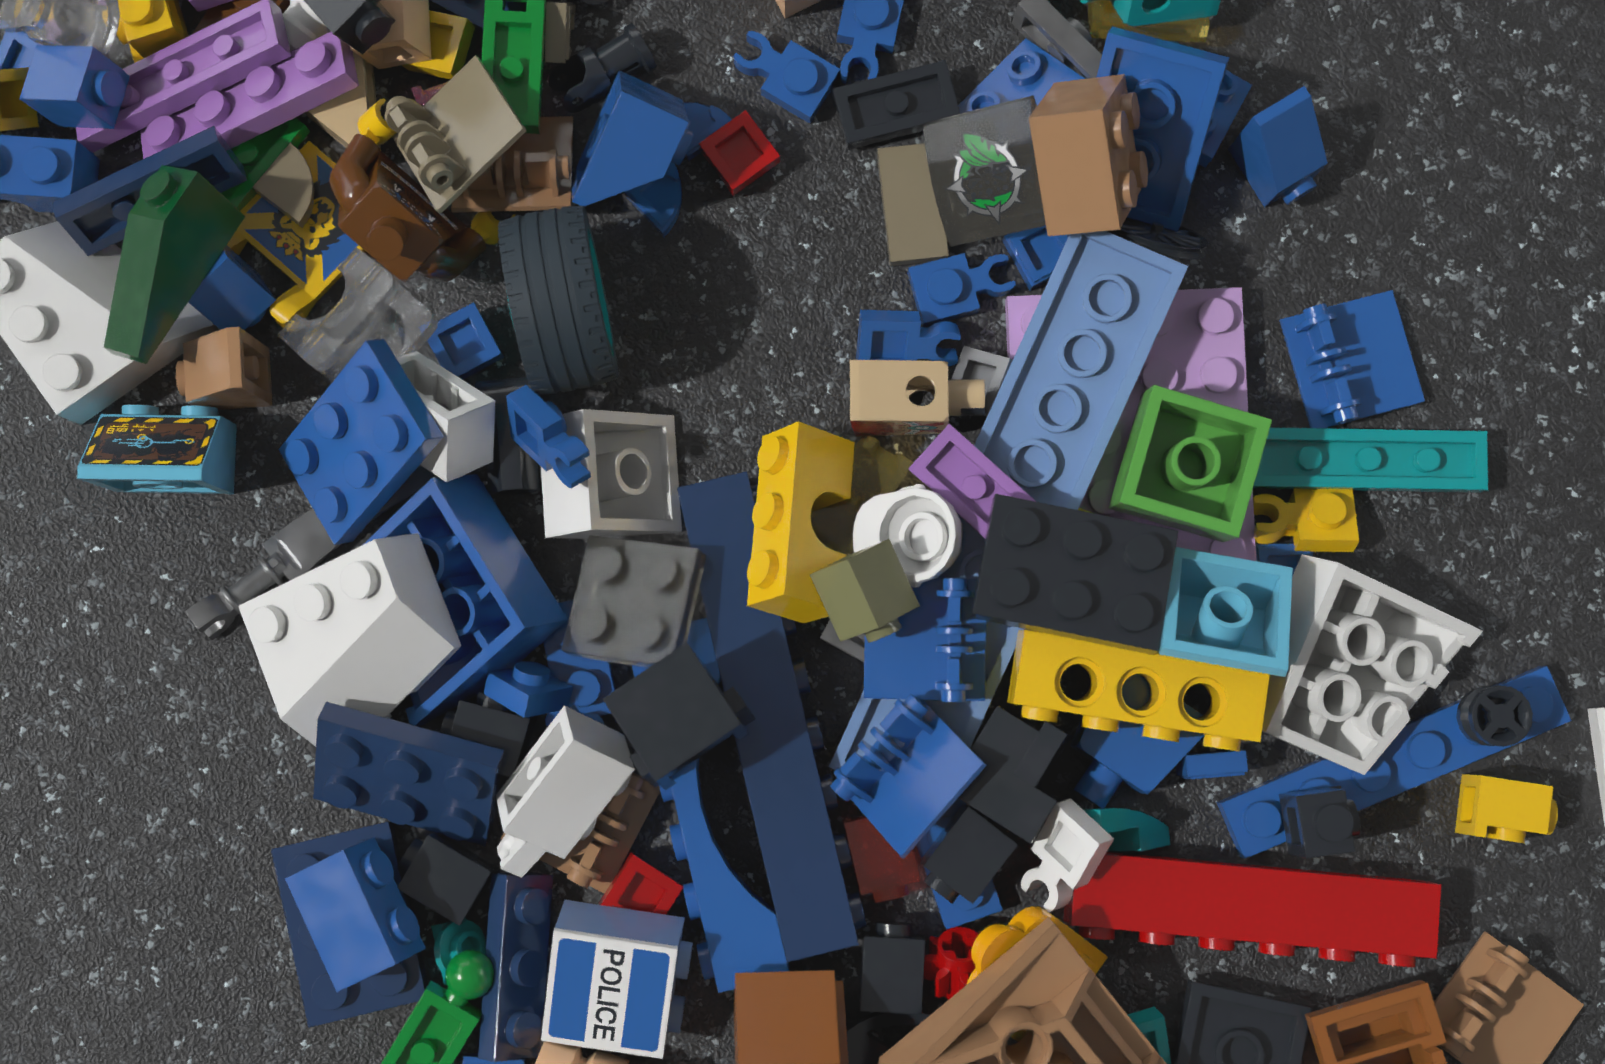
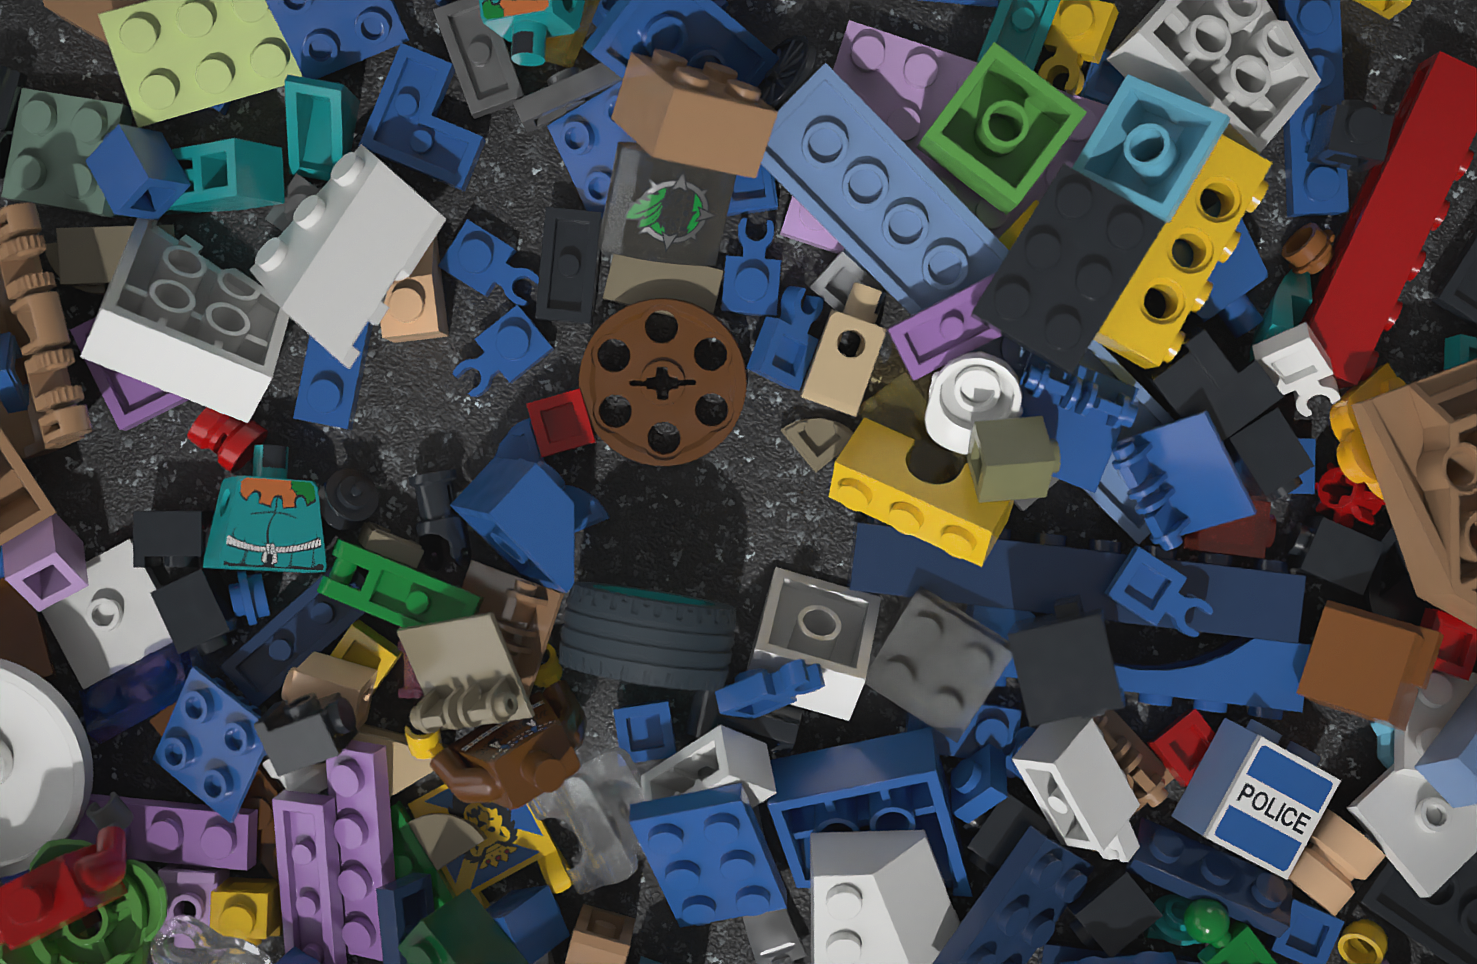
camera: 70 degrees left, 5 degrees up
(786, 784) = (1152, 590): none -> blue plate
(790, 227) = (645, 359): none -> reddish brown wedge
(815, 405) = (817, 440): none -> dark tan tile
(1191, 833) = (1309, 249): none -> dark orange plate
(1212, 764) = (1261, 219): blue tile -> none

